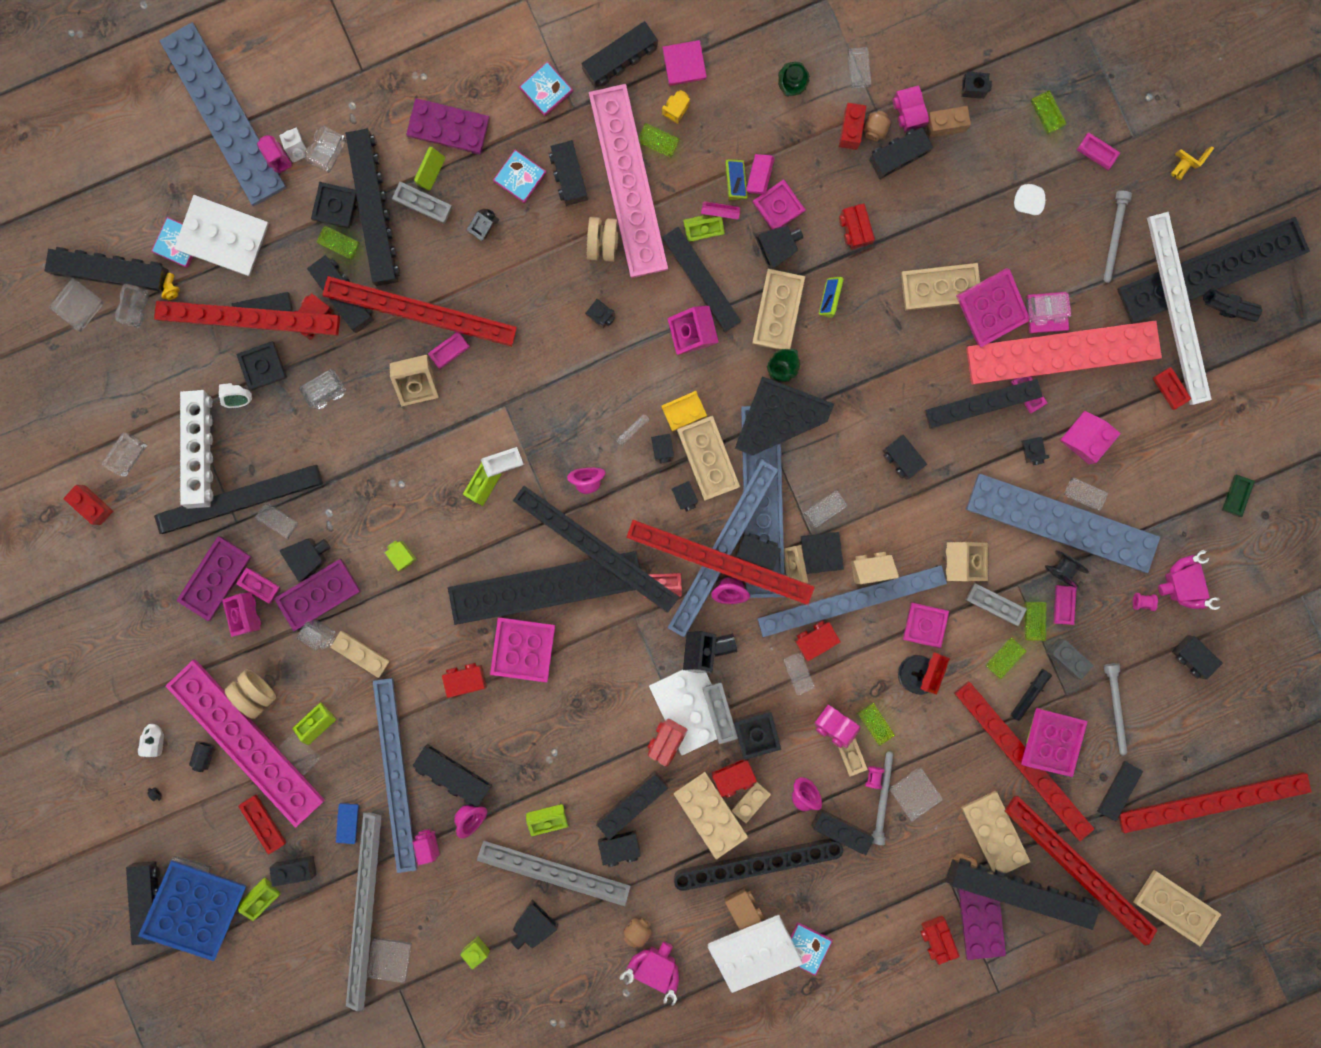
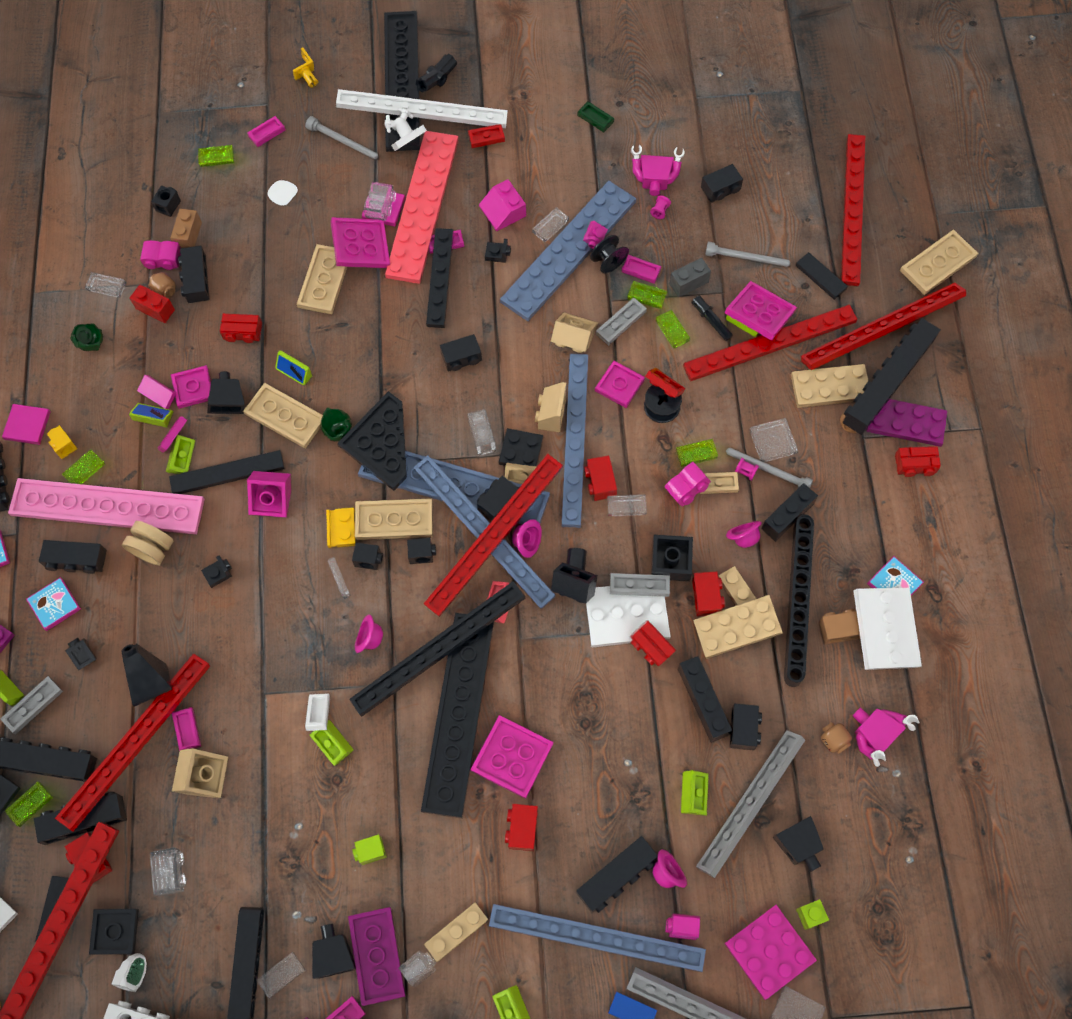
camera: 65 degrees left, 20 degrees down
(434, 924) = (770, 952): none -> dark pink plate
(478, 296) = (145, 674): none -> black slope
(1084, 546) = (594, 234): none -> dark pink bracket
(1139, 306) = (403, 128): none -> white piece

